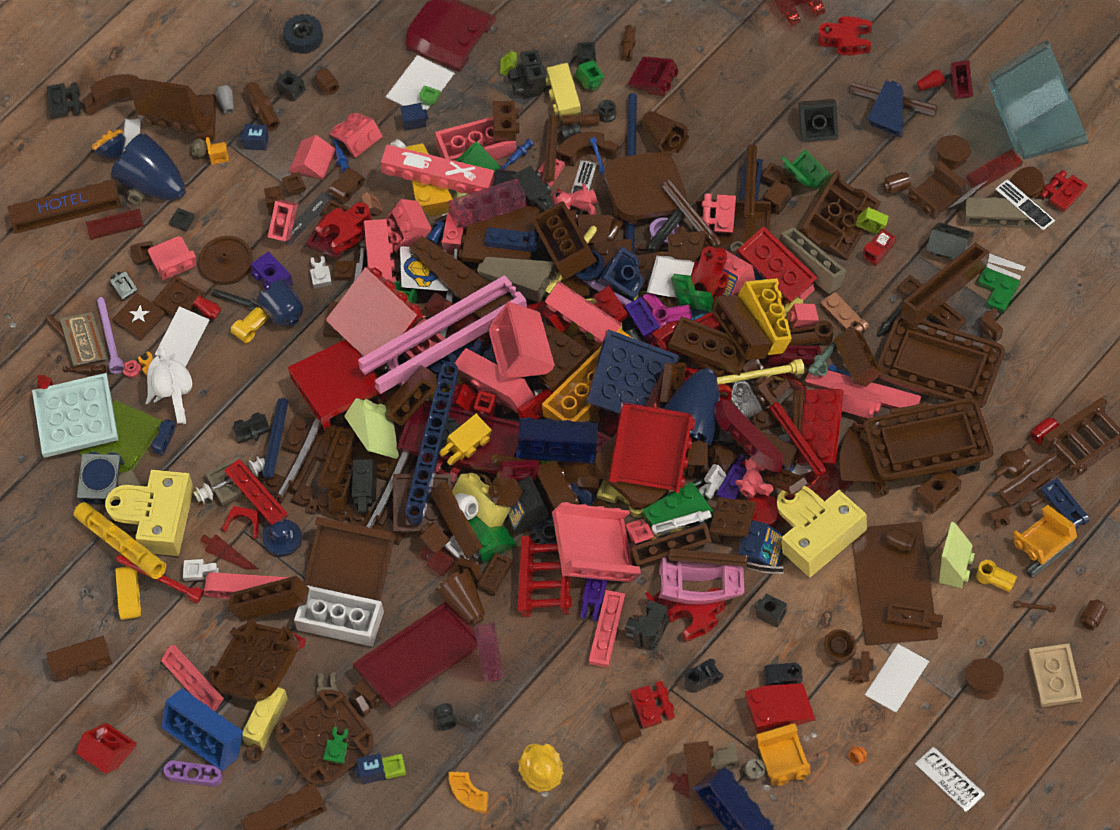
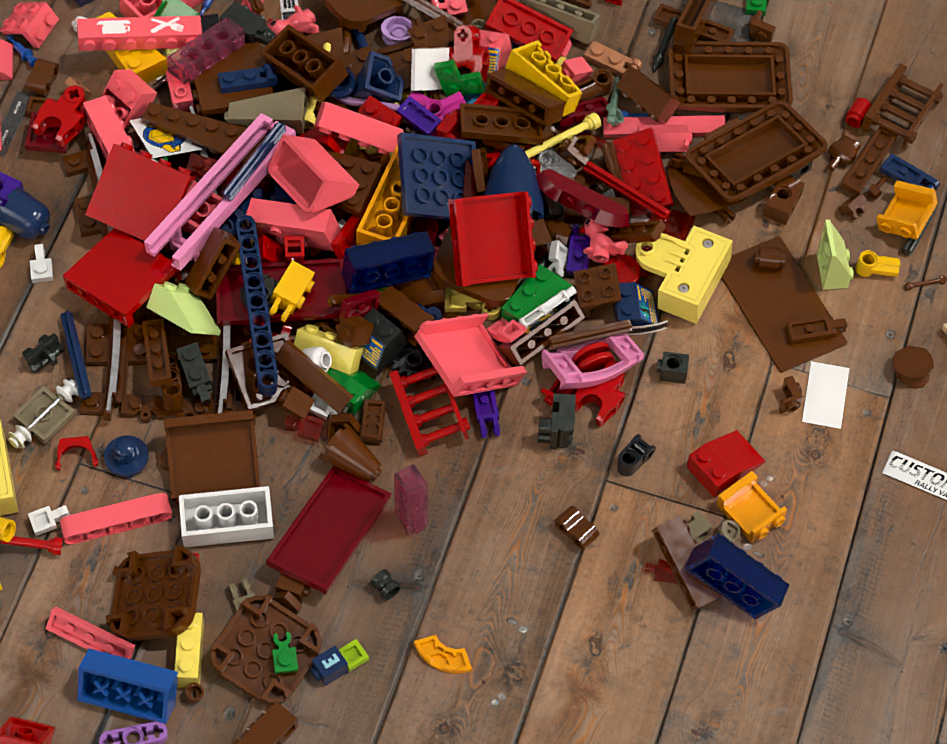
camera: 30 degrees left, 0 degrees up
(223, 550) = (66, 490): clear red bar -> none
(255, 492) = (79, 417): red plate -> none
(268, 598) = (144, 522): reddish brown brick -> none
(280, 353) = (41, 268): none -> white plate
(320, 274) = (51, 174): white plate -> none
(437, 232) = (162, 94): blue pin -> none
(477, 317) = (254, 161): none -> dark blue axle
(541, 767) = (510, 602): yellow head -> none
(607, 629) = (515, 439): coral plate -> none
(646, 707) = (590, 505): red plate -> none
(664, 231) = (400, 27): pearl dark grey axle -> none
(701, 579) = (593, 357): none -> red head
(781, 674) = (714, 426): black piece -> none
(840, 645) = (759, 380): reddish brown hair -> none
(857, 755) = (824, 482): orange plate -> none

